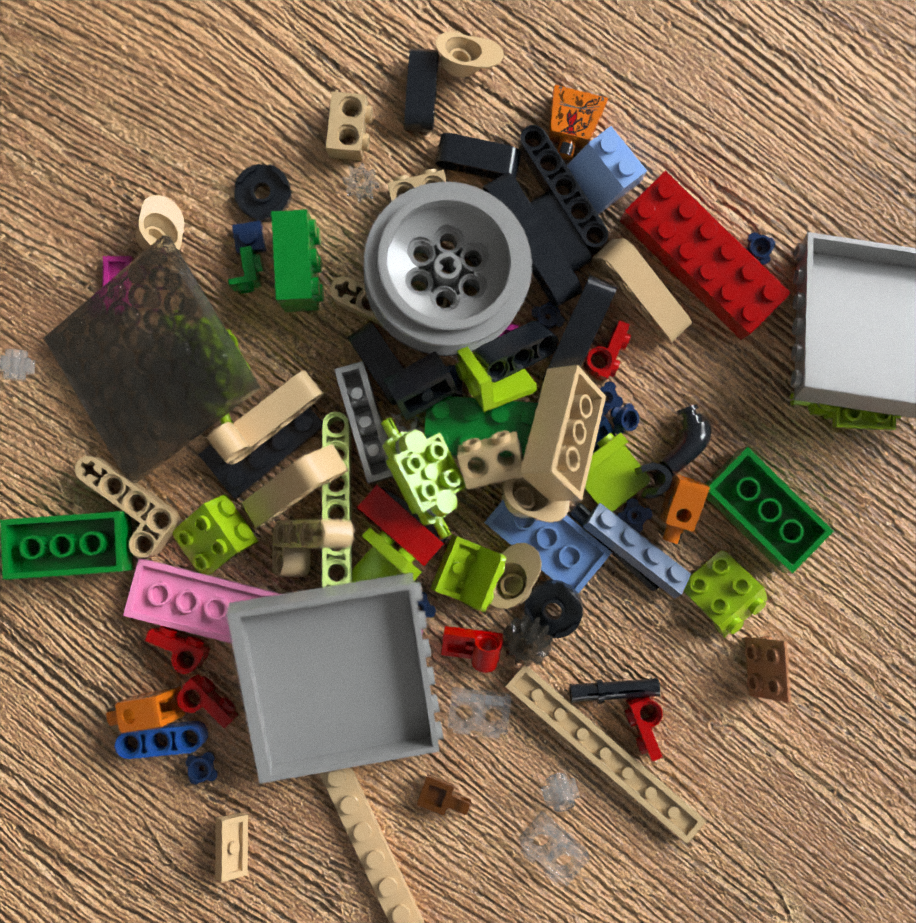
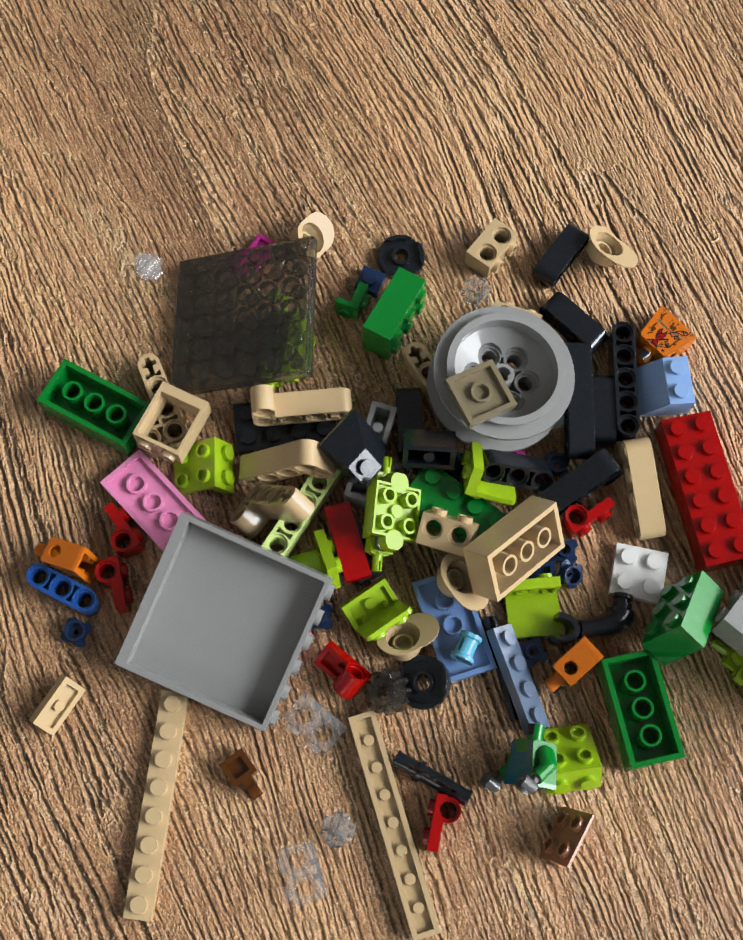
camera: 30 degrees right, 15 degrees down
(127, 524) = (183, 400): none -> tan window
(351, 433) = (354, 448): none -> black slope
(441, 306) = (480, 393): none -> dark tan plate
(574, 555) = (466, 647): none -> medium azure bush
(686, 376) = (638, 572): none -> white plate
(697, 629) = (529, 766): none -> green torso
(760, 401) = (683, 618): none -> green brick

